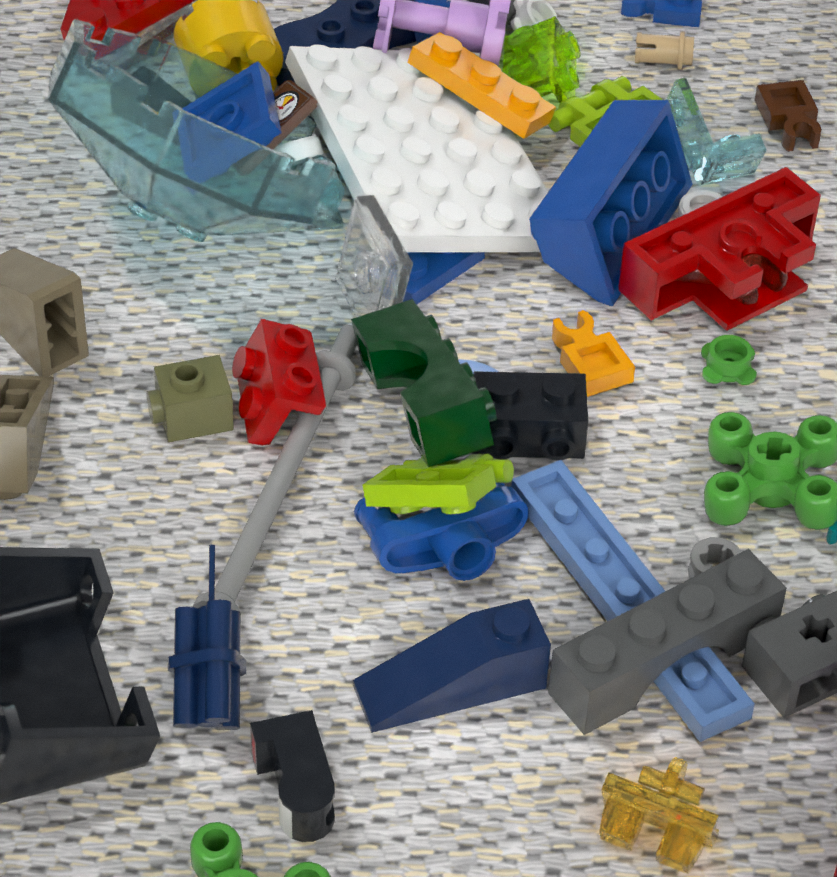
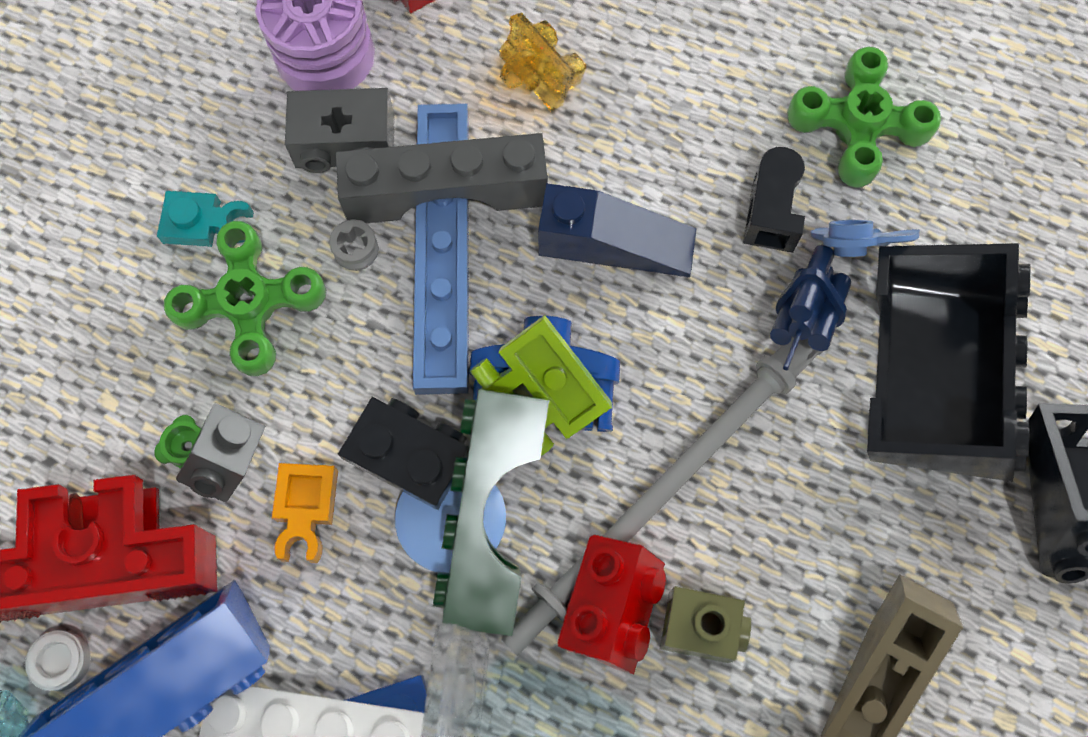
camera: 150 degrees left, 25 degrees up
(179, 759) = (853, 237): none -> medium blue plate
(690, 358) = (220, 454): none -> bracket

